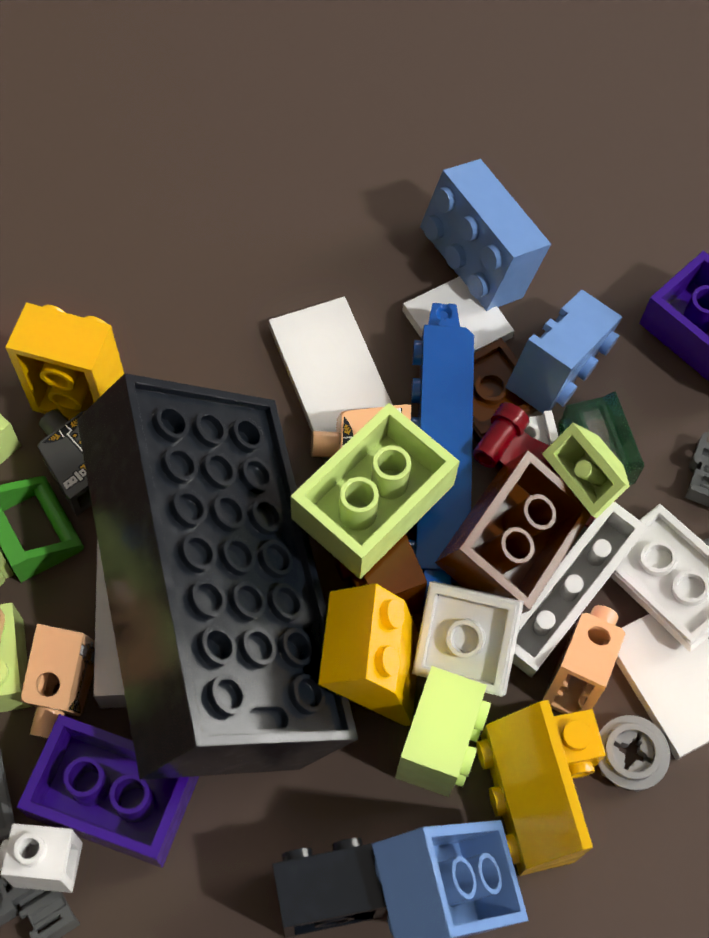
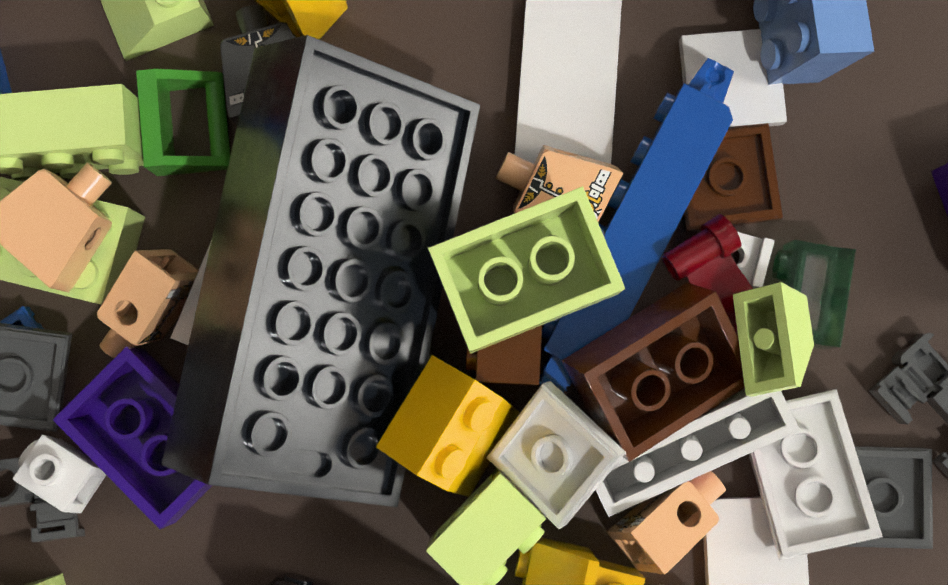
camera: 30 degrees right, 20 degrees up
(564, 352) = (828, 177): medium blue wedge -> none

